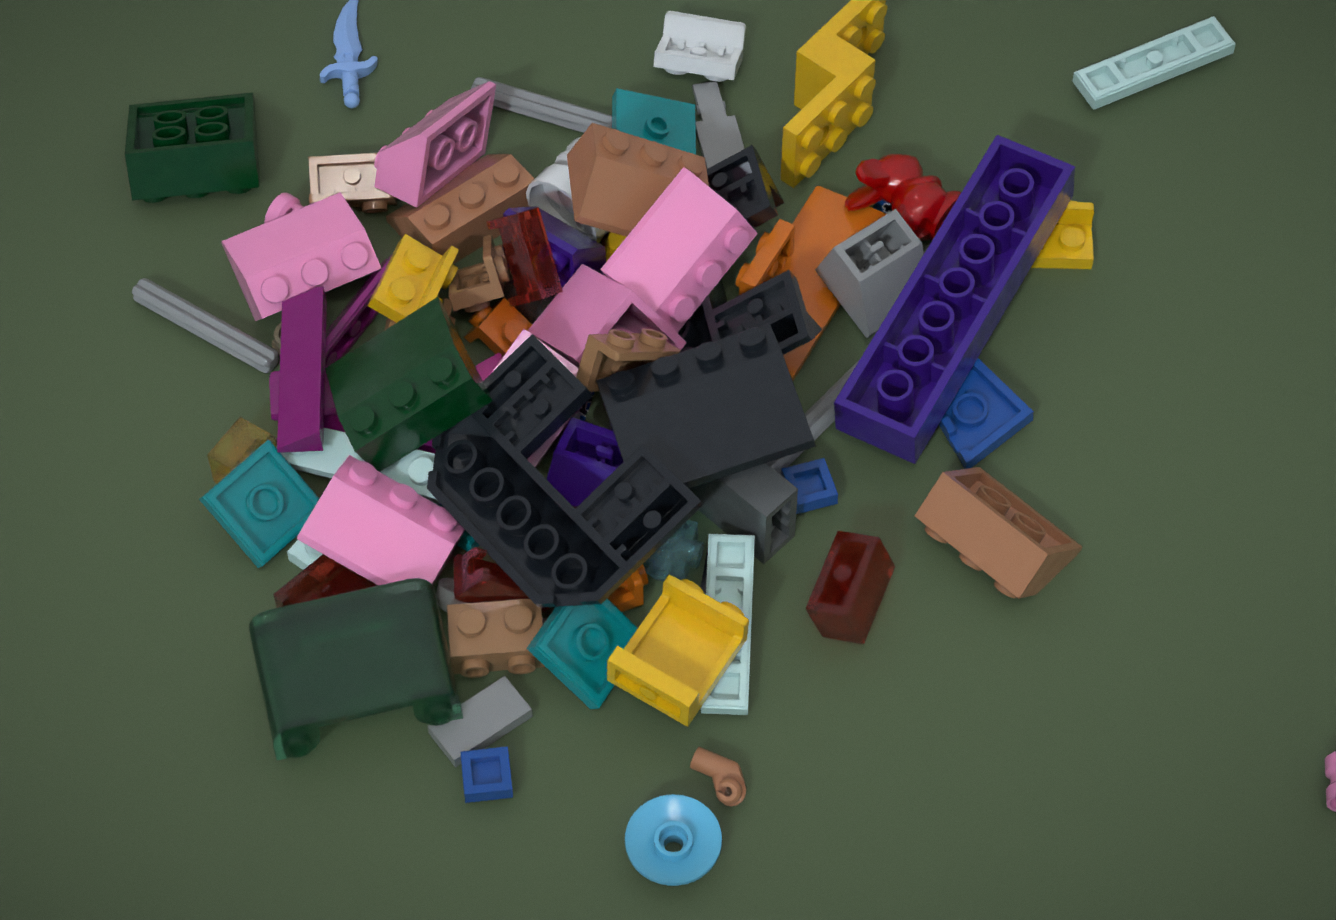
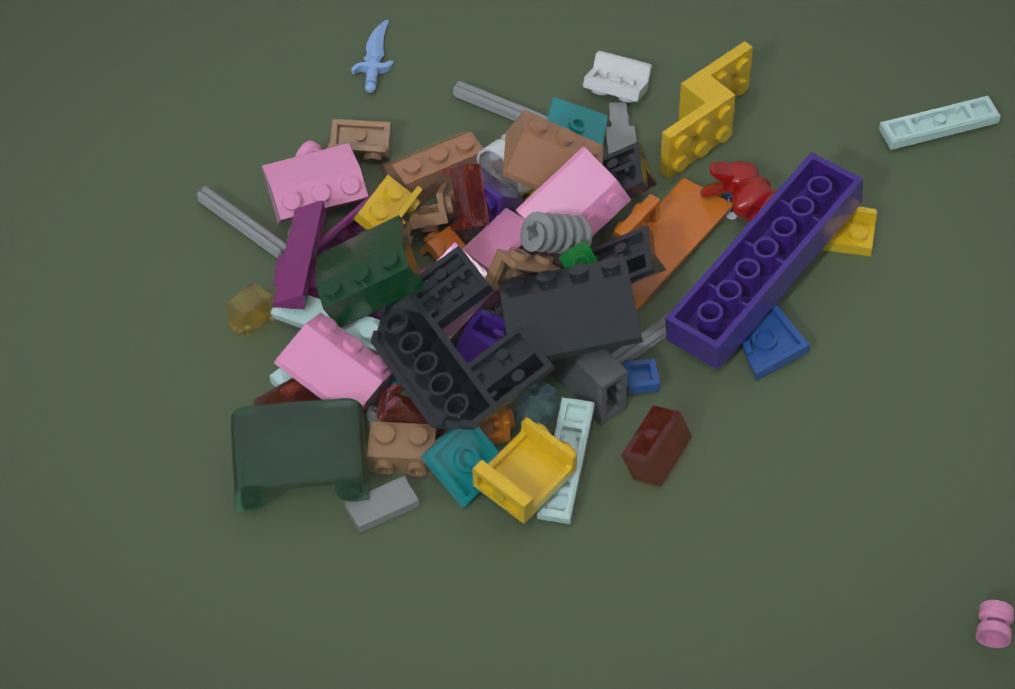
camera: 10 degrees right, 5 degrees down
(192, 147) = (255, 106): dark green slope -> none
(261, 503) = (255, 340): teal plate -> none
(436, 147) = (421, 122): bright pink slope -> none
(486, 774) = (379, 539): blue plate -> none
(665, 300) = (554, 232): none -> light grey piece
(673, 820) = (501, 587): medium azure dish -> none
(699, 329) = (578, 254): none -> green bracket
(725, 774) = (546, 561): nougat arm -> none
(872, 269) = (708, 232): light grey slope -> none
(996, 531) = (768, 422): nougat slope -> none

